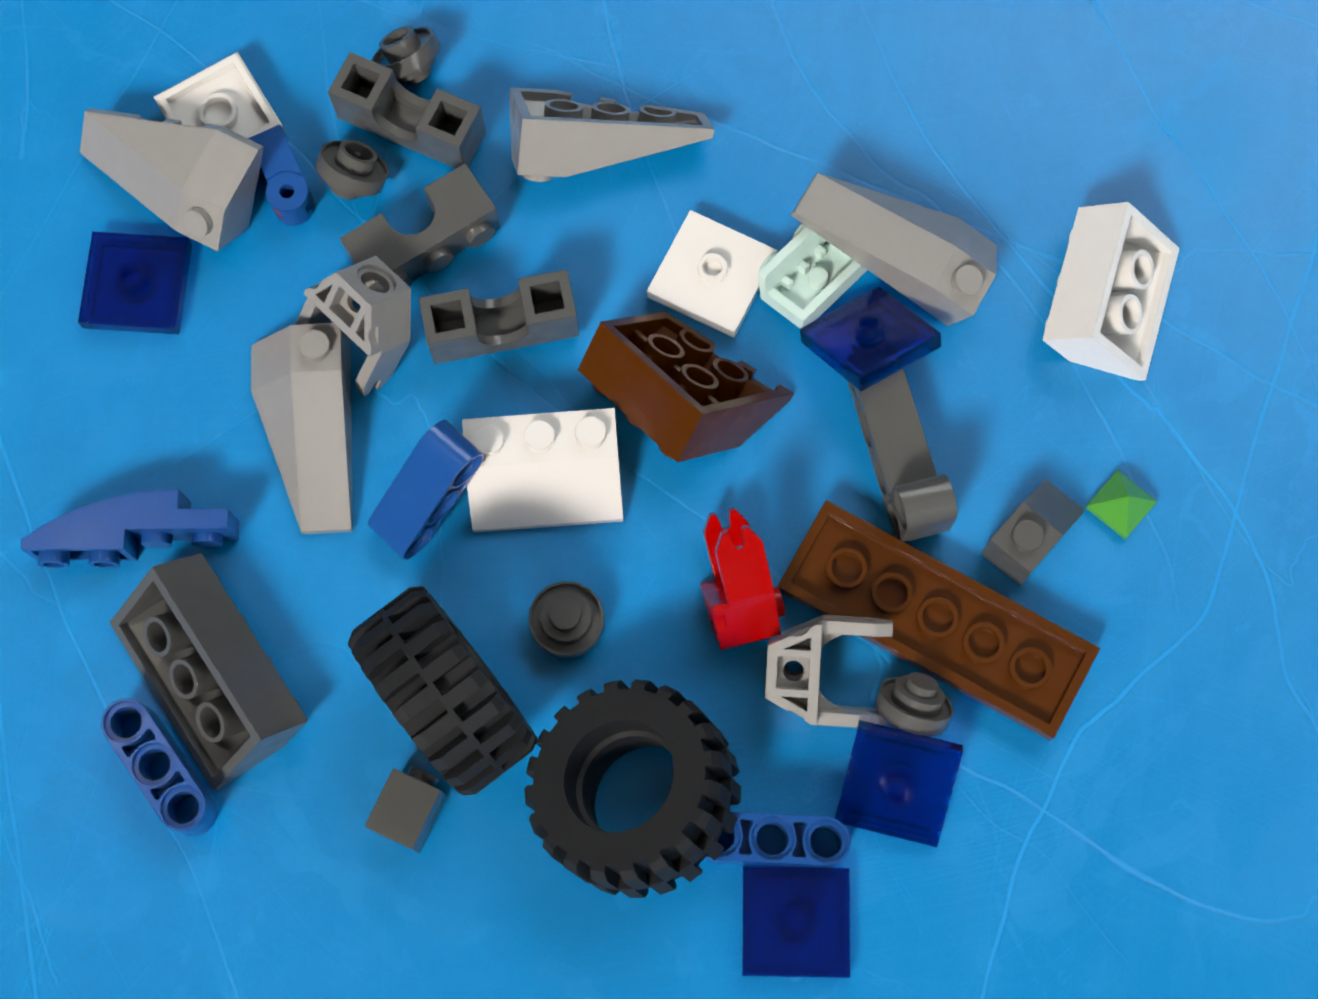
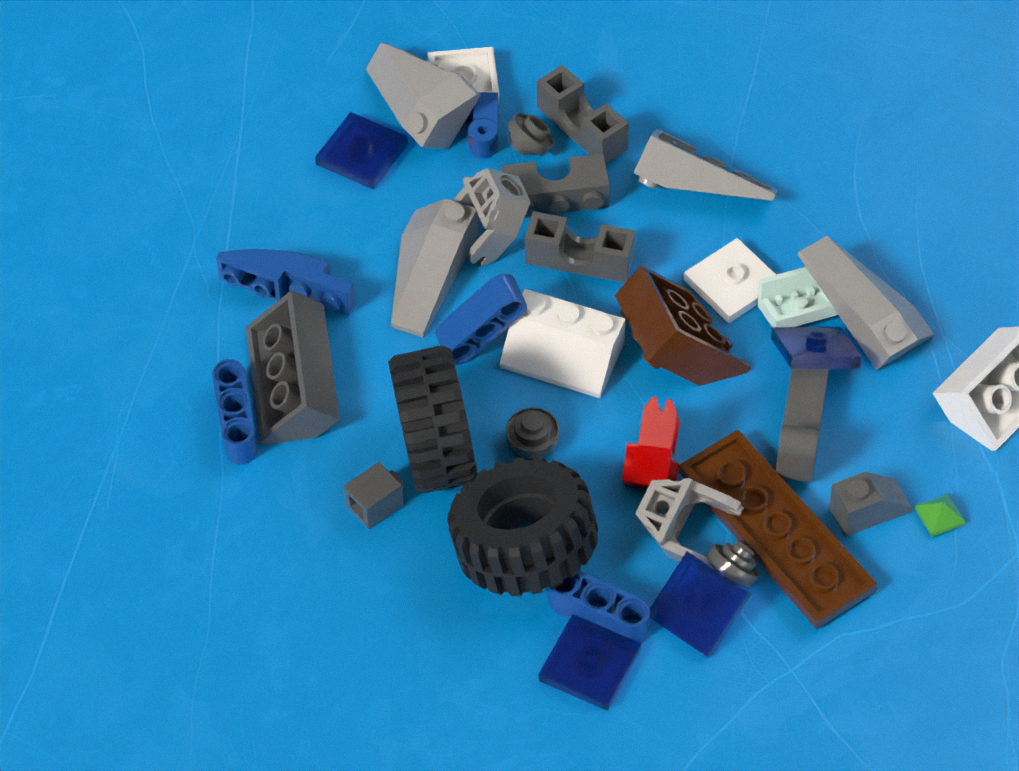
camera: 25 degrees right, 20 degrees down
(408, 53) = (601, 85): dark grey plate -> none

